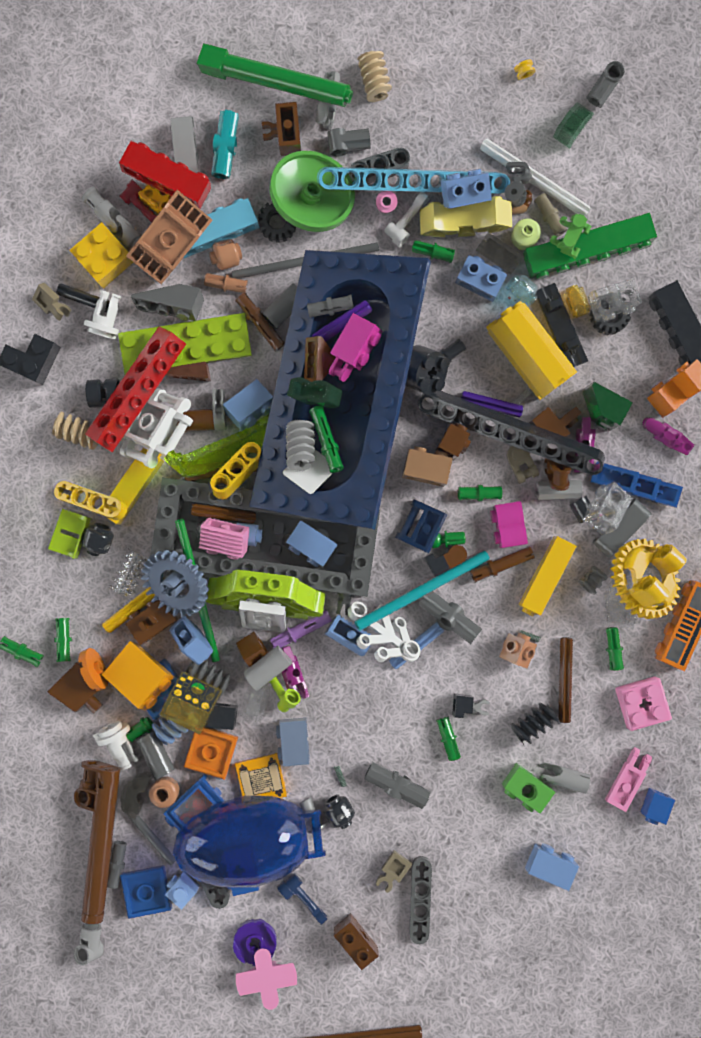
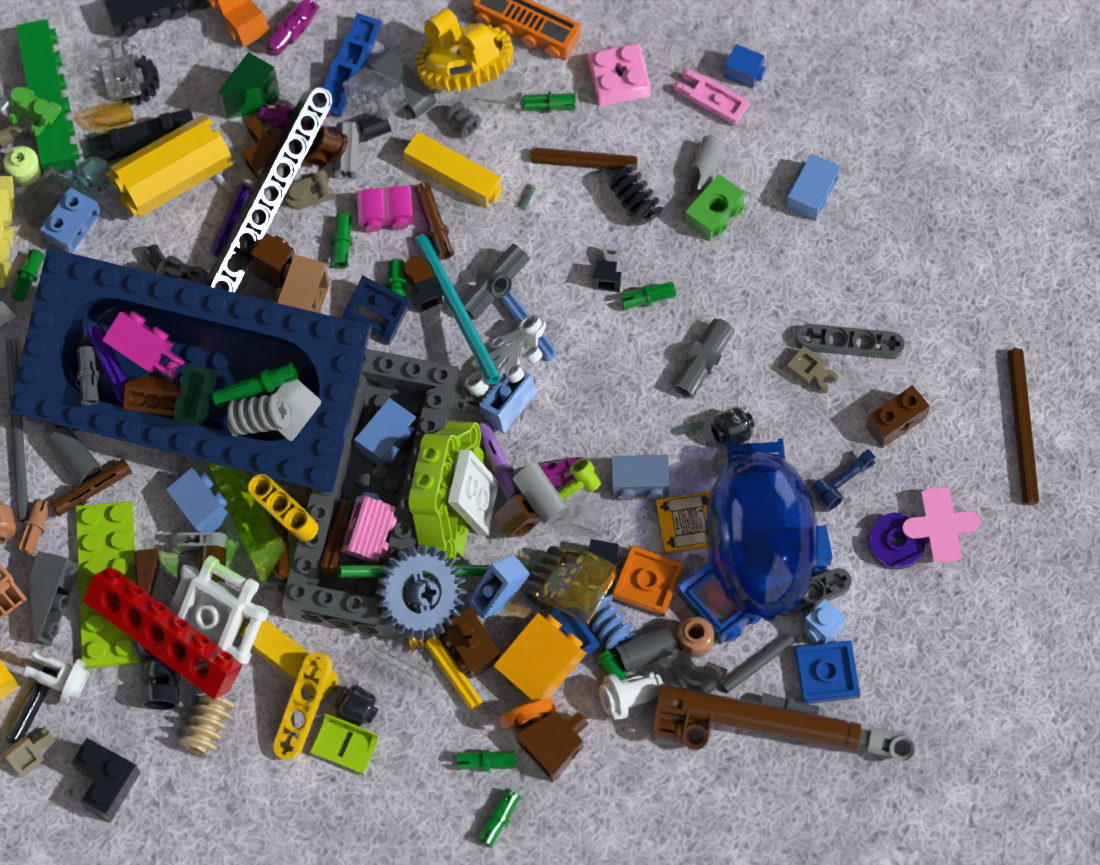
camera: 85 degrees left, 20 degrees down
(518, 650) = (541, 206): nougat brick -> none

